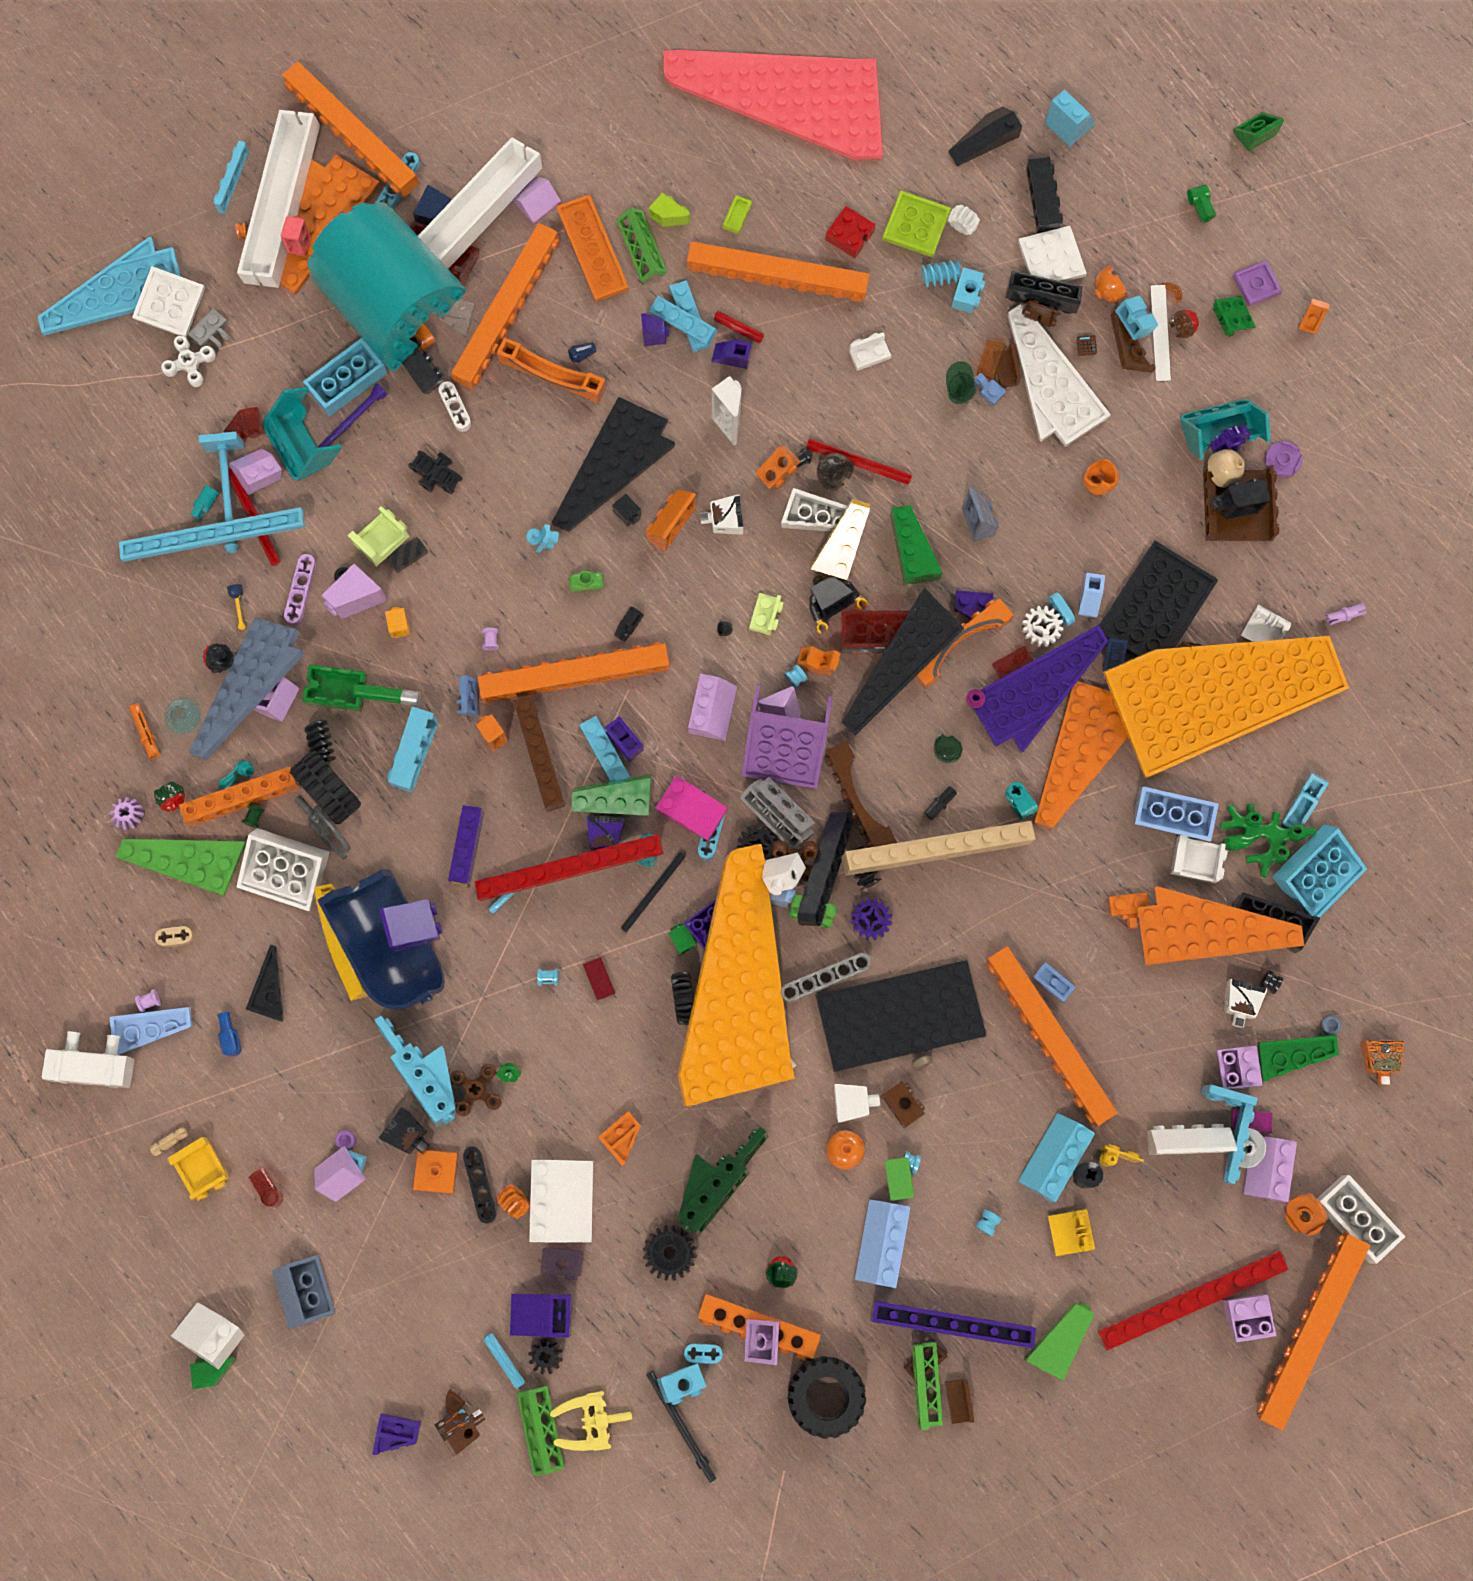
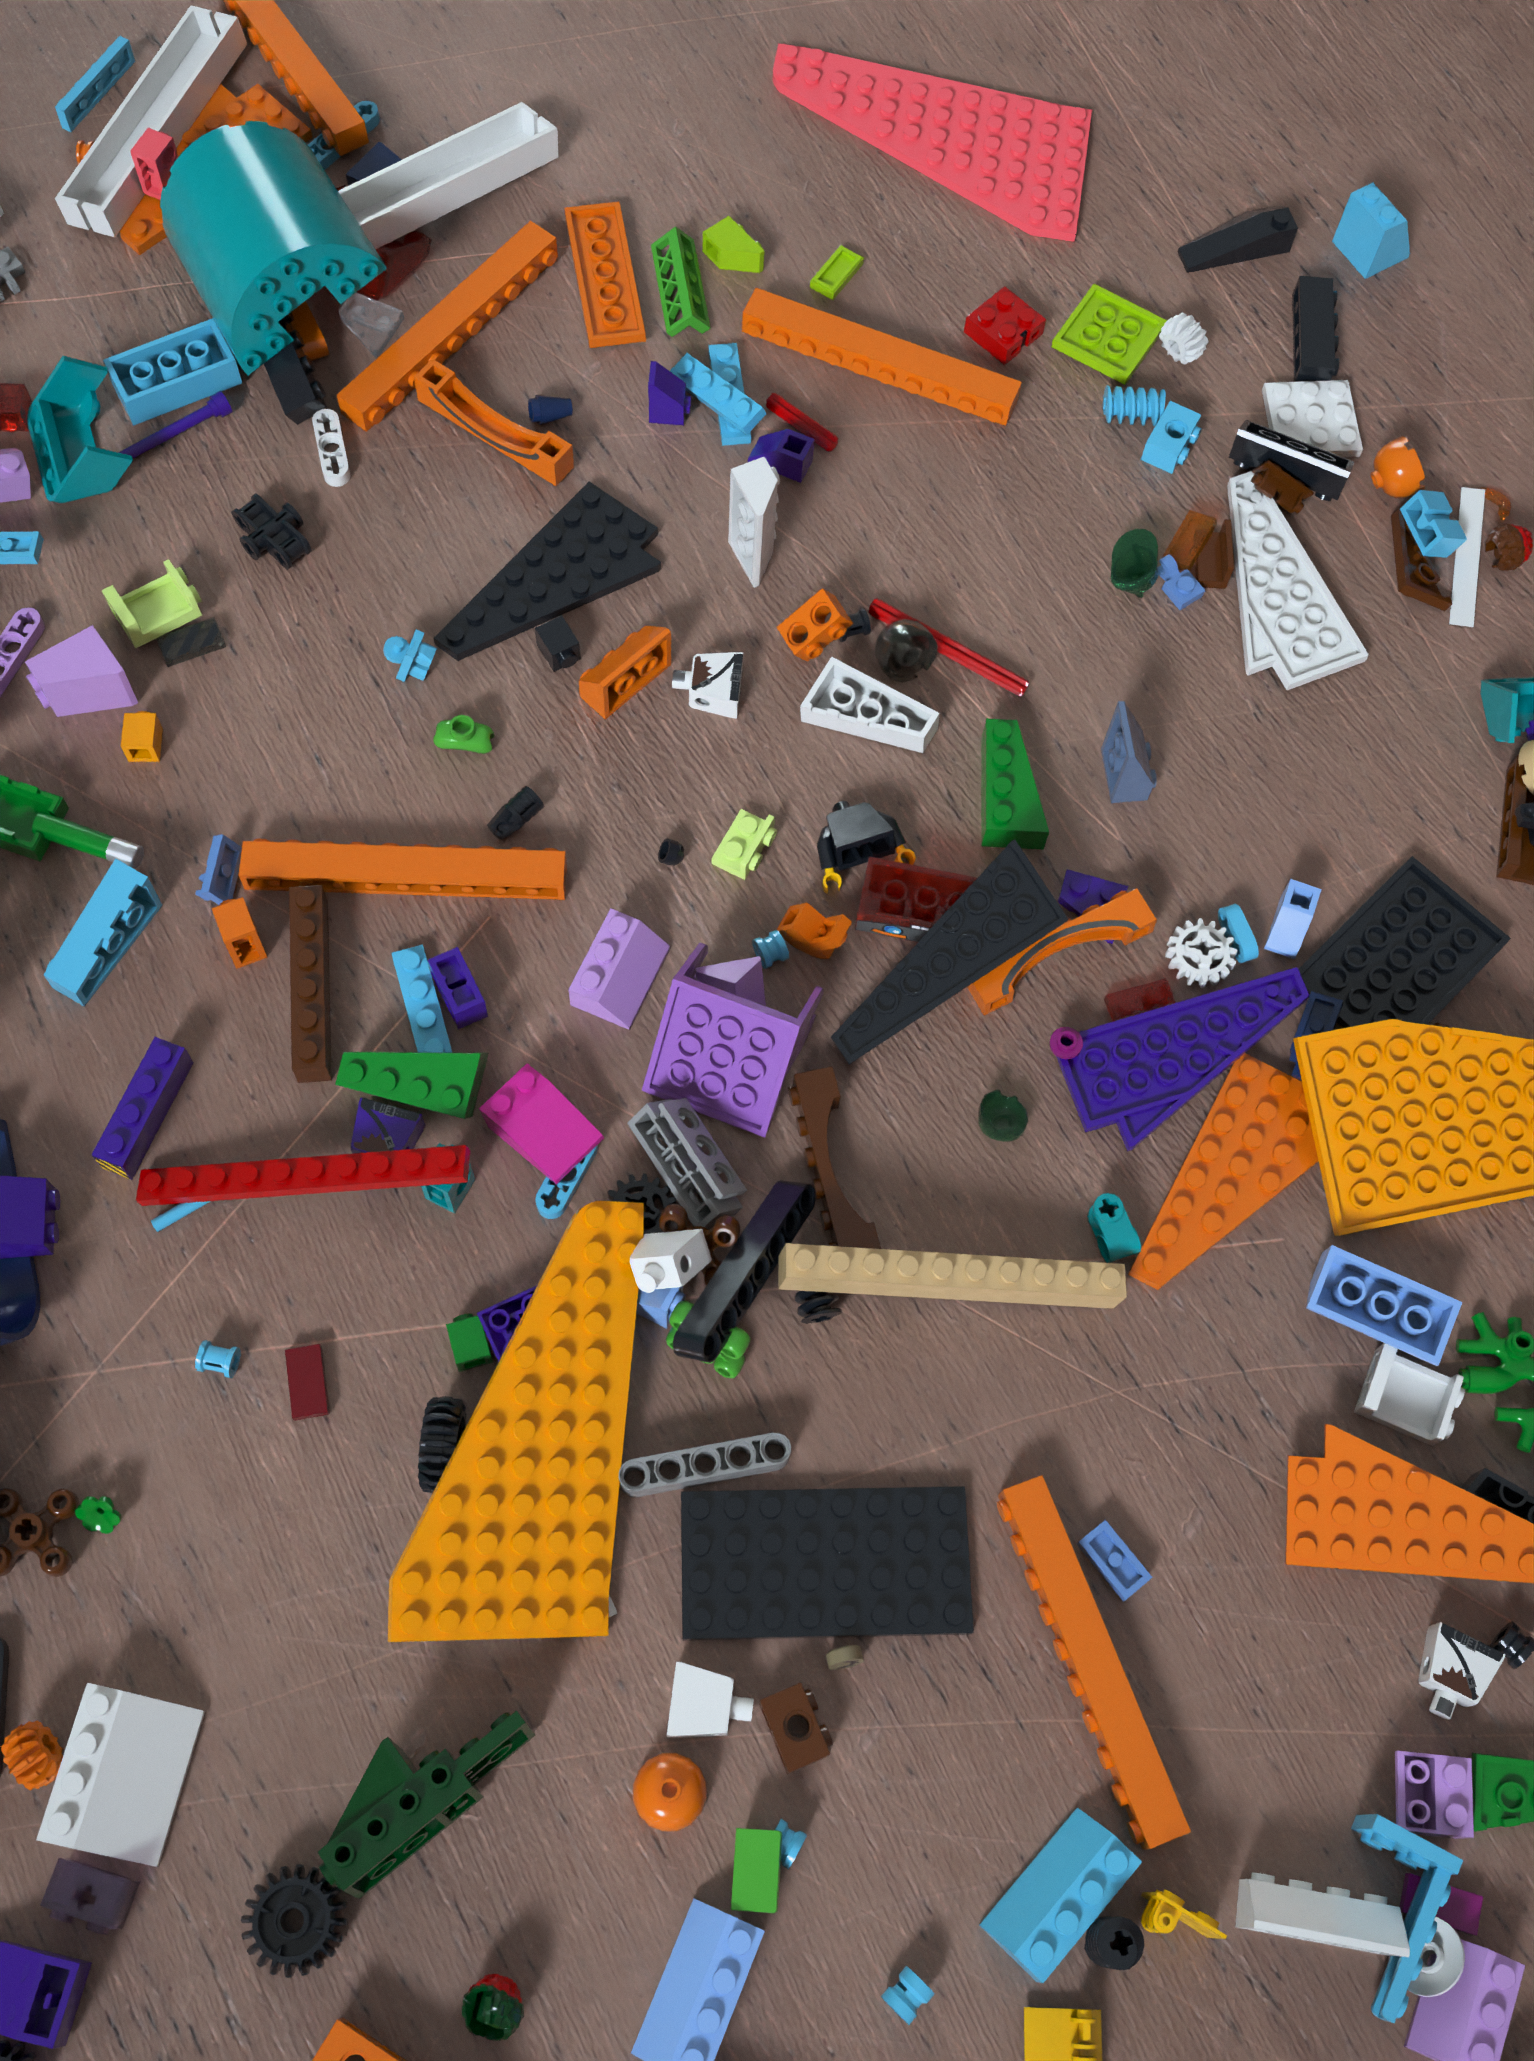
camera: 10 degrees right, 10 degrees down
(490, 639) = (283, 791): lavender bush -> none
(537, 199) = (539, 196): lavender slope -> none
(620, 1136) = (265, 1676): orange wing -> none
(653, 891) = (440, 1253): black piece -> none
(841, 546) = (892, 755): wedge -> none
(869, 351) = (998, 492): white bracket -> none
(880, 921) = (821, 1384): dark purple gear -> none
(940, 803) = (971, 1205): black axle -> none
(1086, 345) = (1346, 551): reddish brown tile -> none
(1101, 477) = (1338, 742): orange piece -> none
(1127, 907) = (1269, 1454): orange hinge -> none

